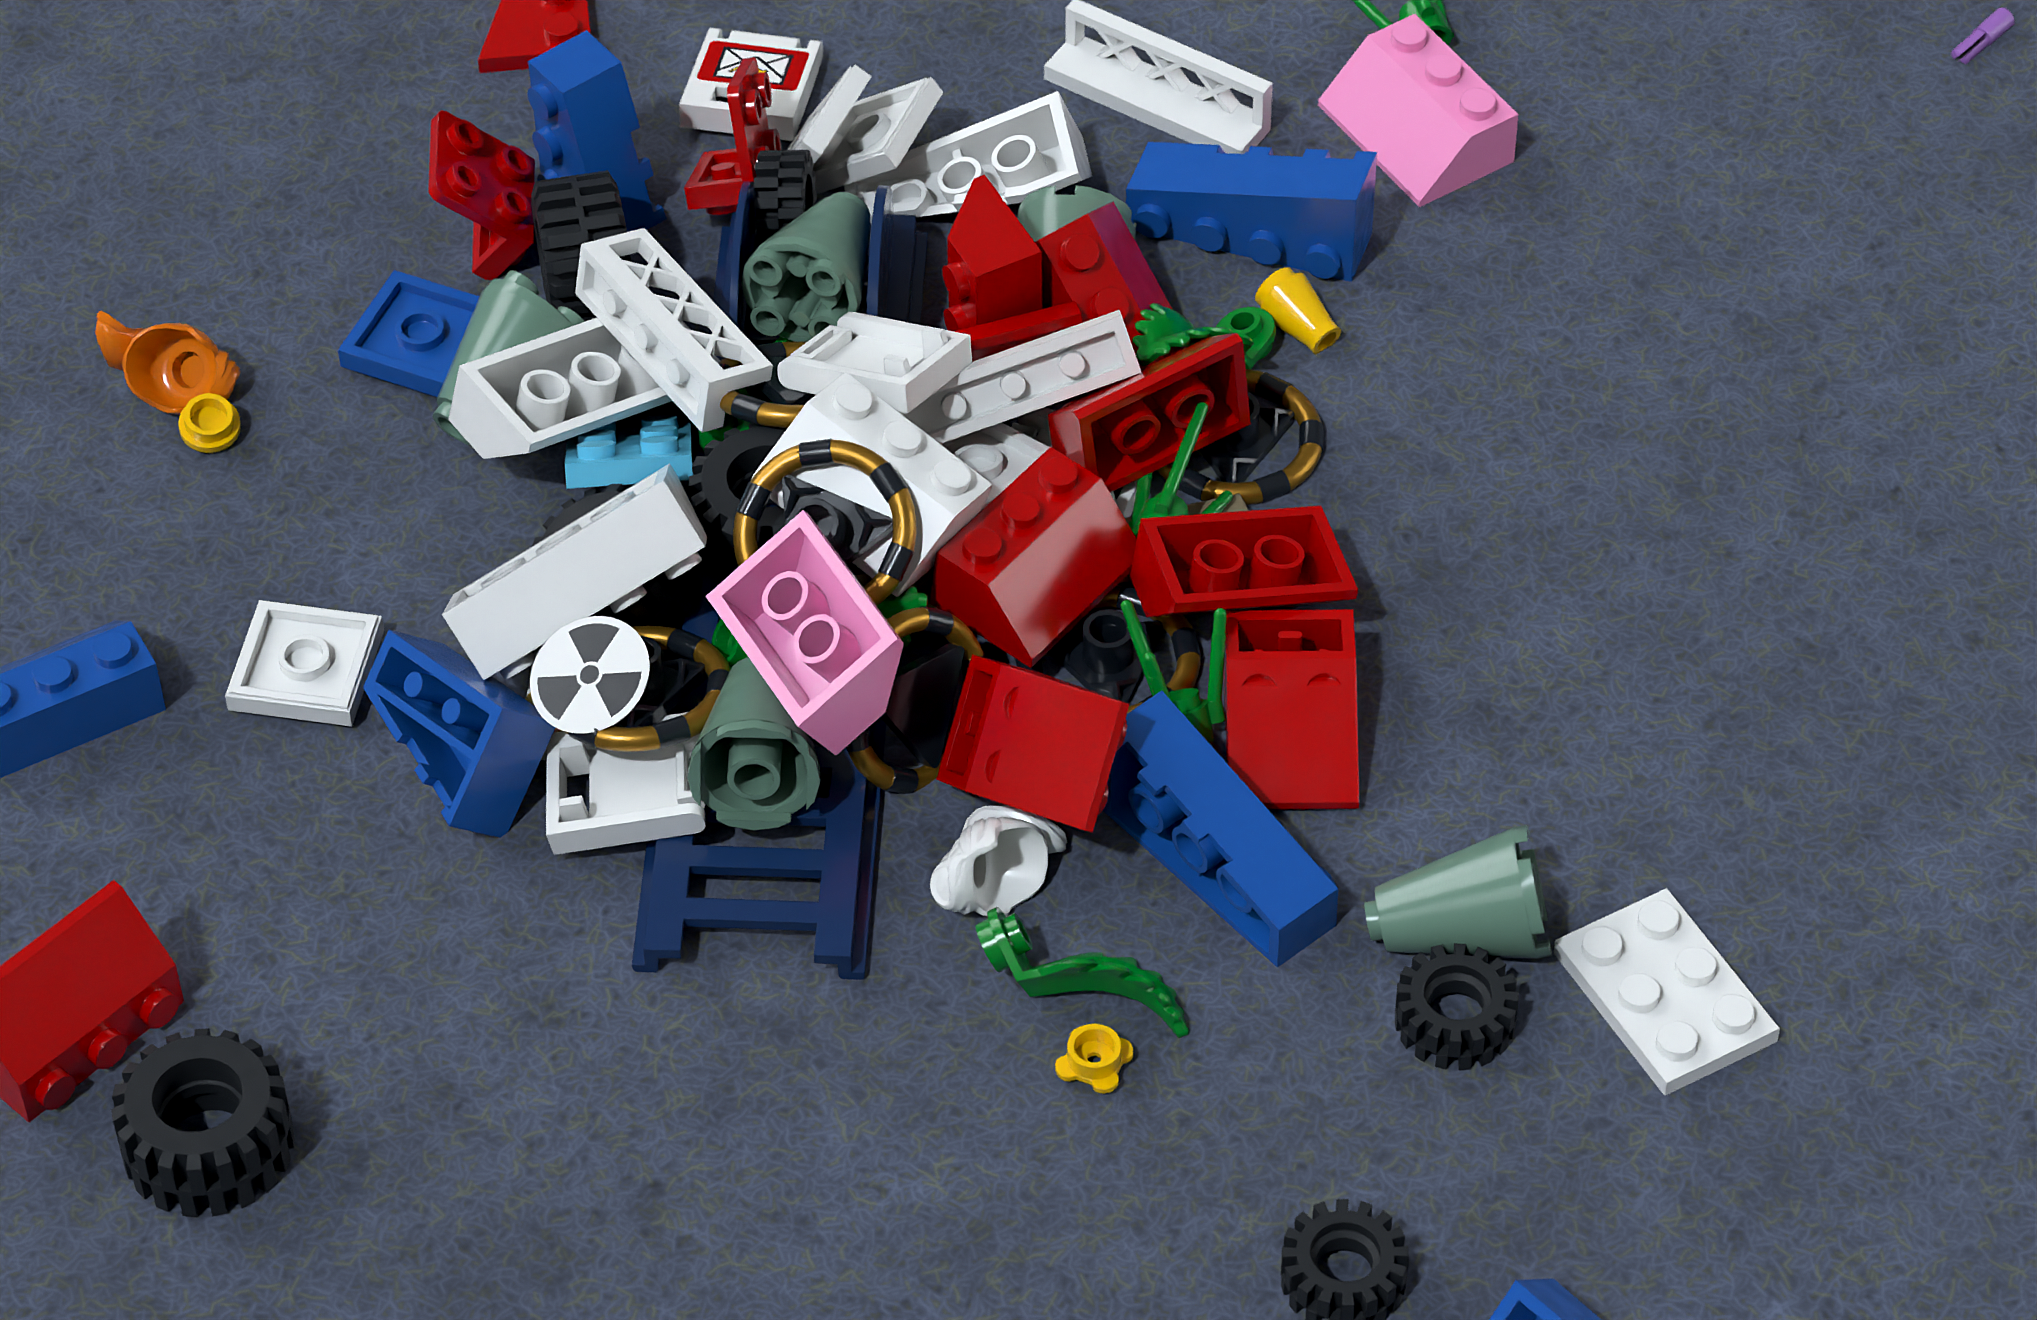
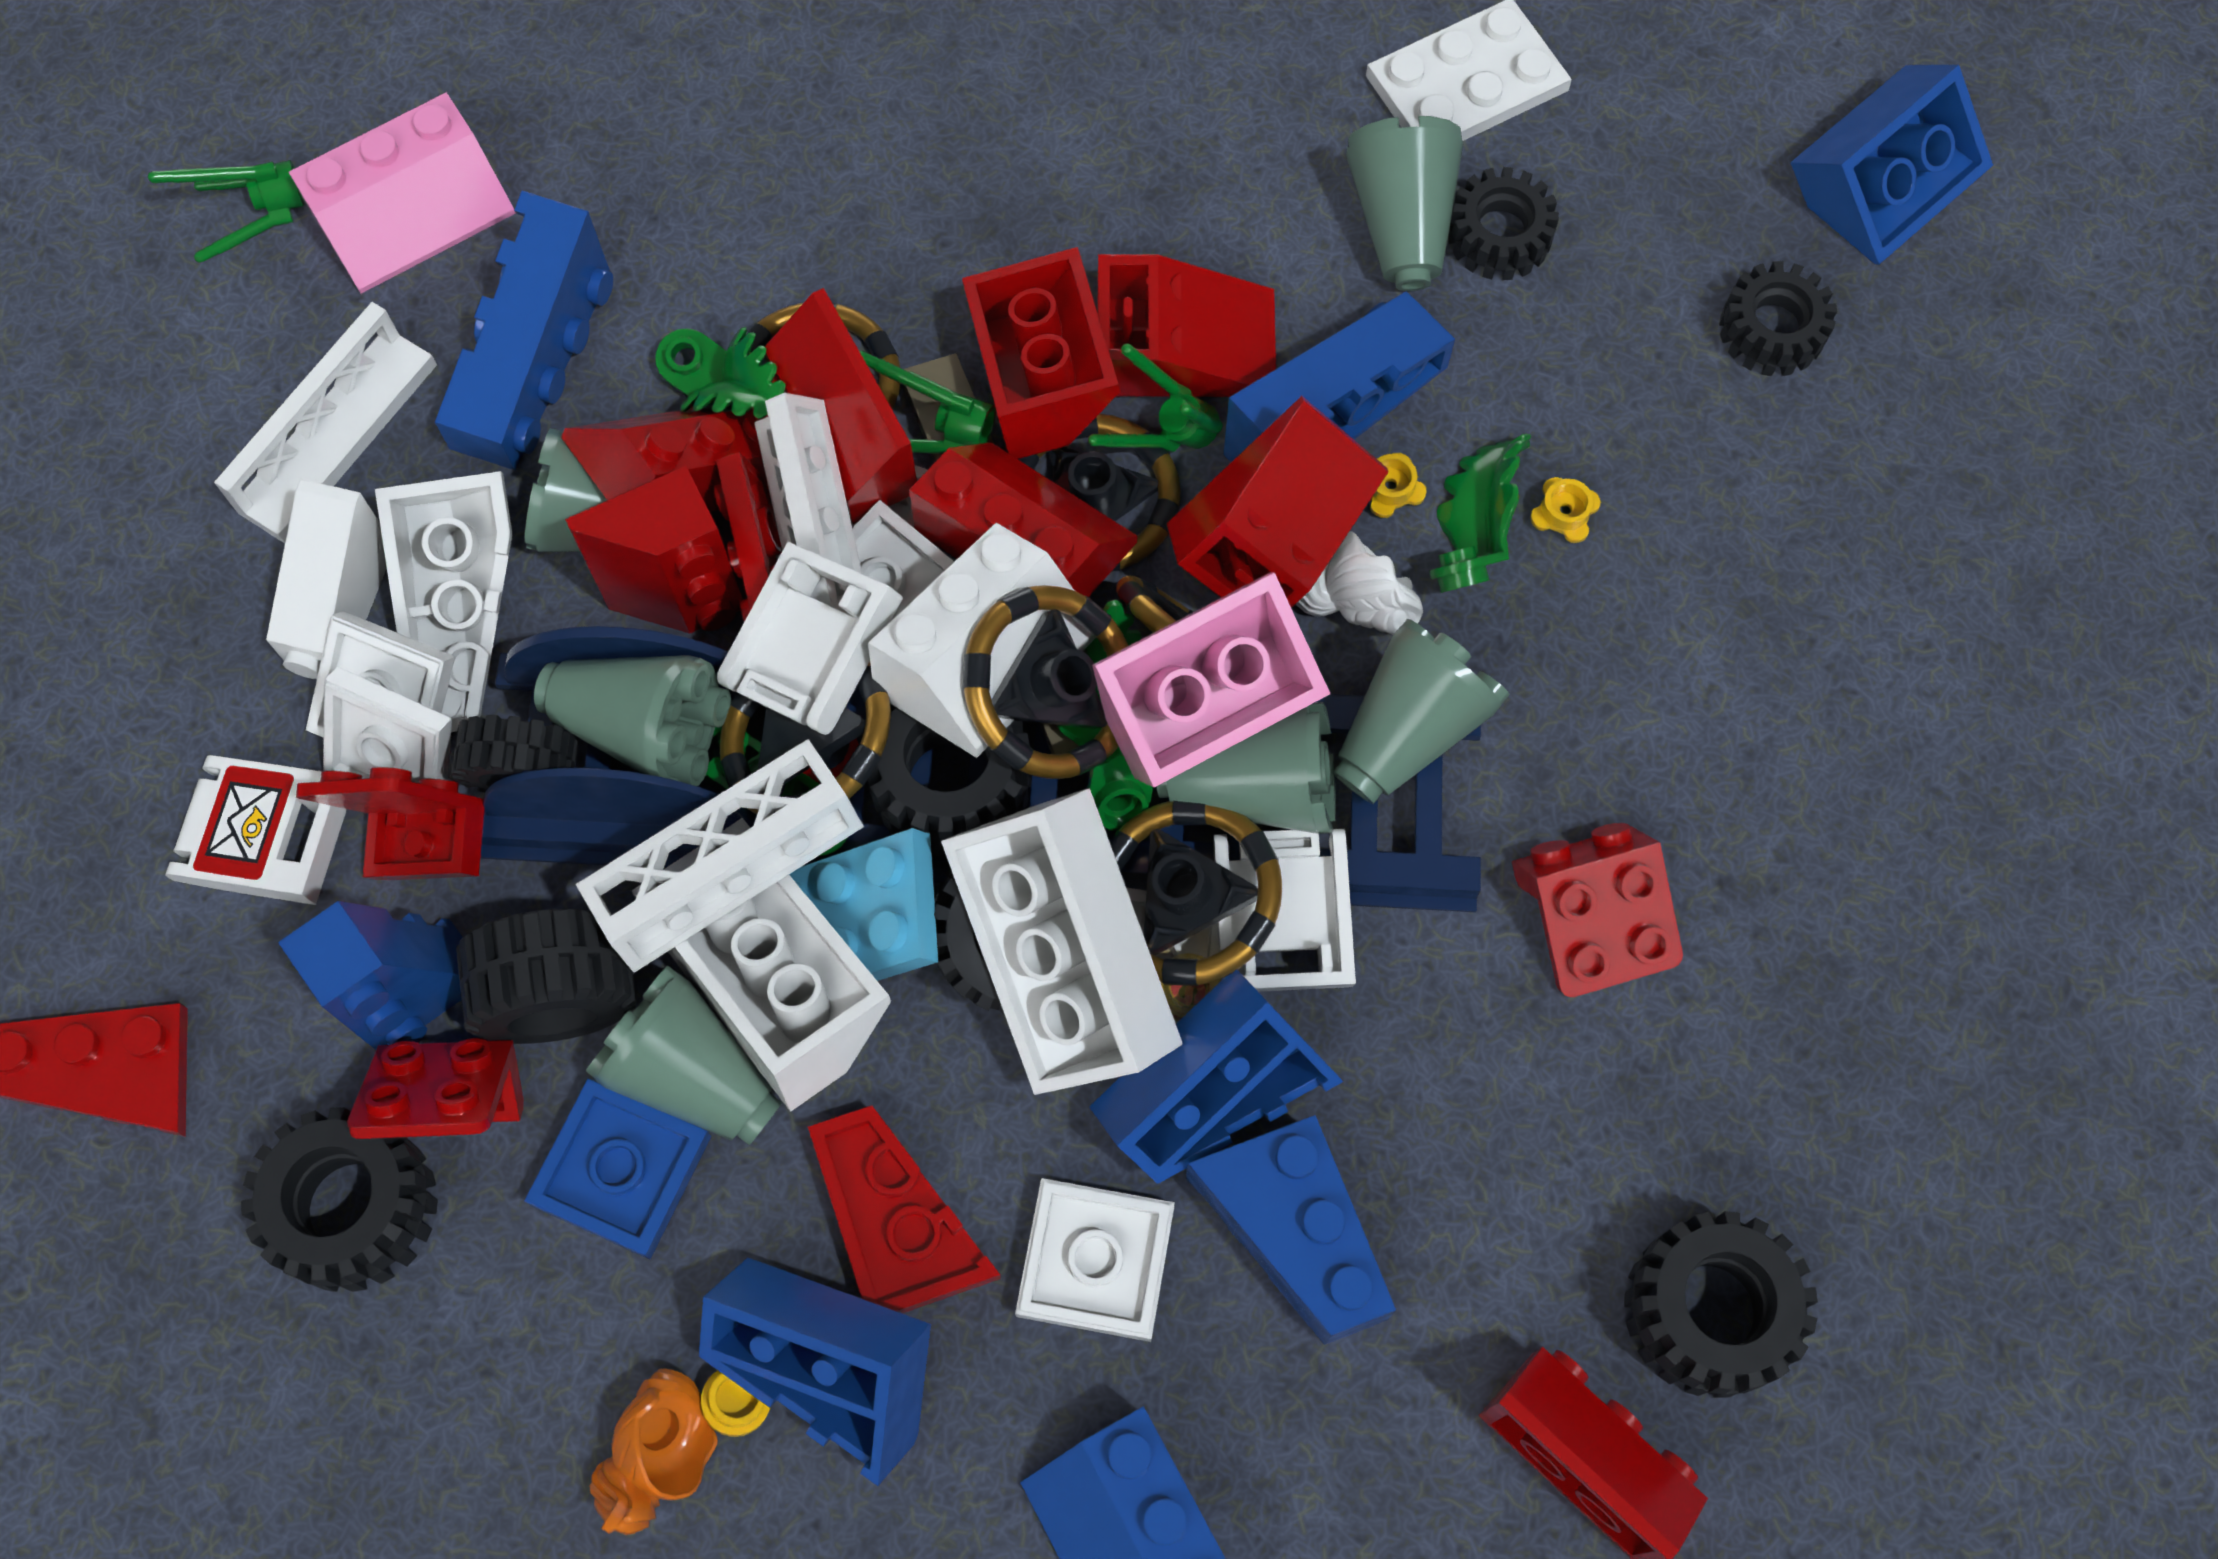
camera: 90 degrees left, 20 degrees up
(229, 461) = (823, 1356): none -> blue wedge
(313, 801) = (1299, 1225): none -> blue wedge
(358, 518) = (892, 1221): none -> red wing
(384, 152) = (286, 1189): none -> black tyre
(589, 674) = (1205, 923): white sticker -> none
(624, 1052) = (1603, 907): none -> red bracket
(827, 865) = (1414, 711): none -> sand green cone
(986, 78) = (327, 567): none -> white slope
(1120, 887) = (1408, 489): none -> yellow plate
(1297, 309) = (657, 312): yellow cone -> none

